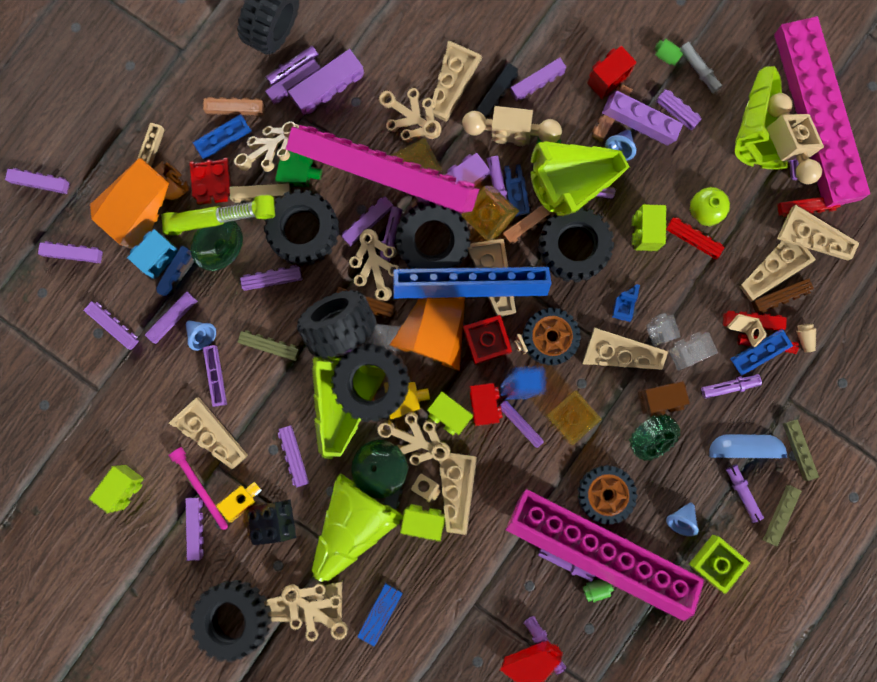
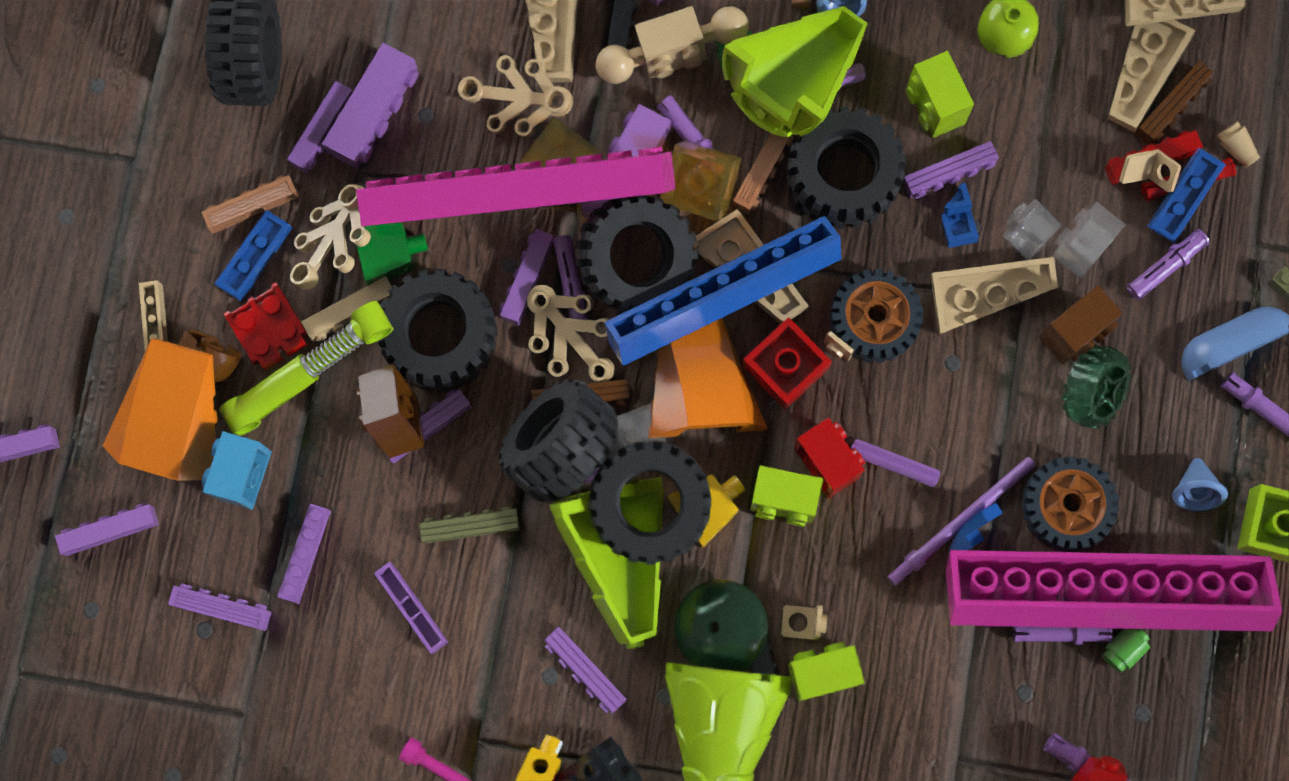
camera: 20 degrees left, 5 degrees down
(173, 271) = (276, 485): dark blue hinge -> none
(200, 334) = (360, 557): medium blue hat -> none
(203, 427) = (436, 694): tan wing -> none
(217, 245) = (309, 415): clear green dish -> none
(252, 261) = (390, 411): none -> reddish brown brick
(310, 54) = (290, 136): medium lavender pin -> none
(417, 440) = (757, 556): tan plant -> none
(457, 485) = (846, 594): tan wing -> none
(506, 483) = (916, 559): none -> medium lavender bar
(517, 191) = (723, 131): dark blue hinge -> none
(522, 384) = (875, 392): blue brick -> none
(542, 485) = (969, 534): none -> blue slope
(573, 417) = (966, 416): clear yellow brick -> none
(635, 274) = (950, 170): none -> medium lavender piece
(695, 238) = (1010, 80): red piece -> none

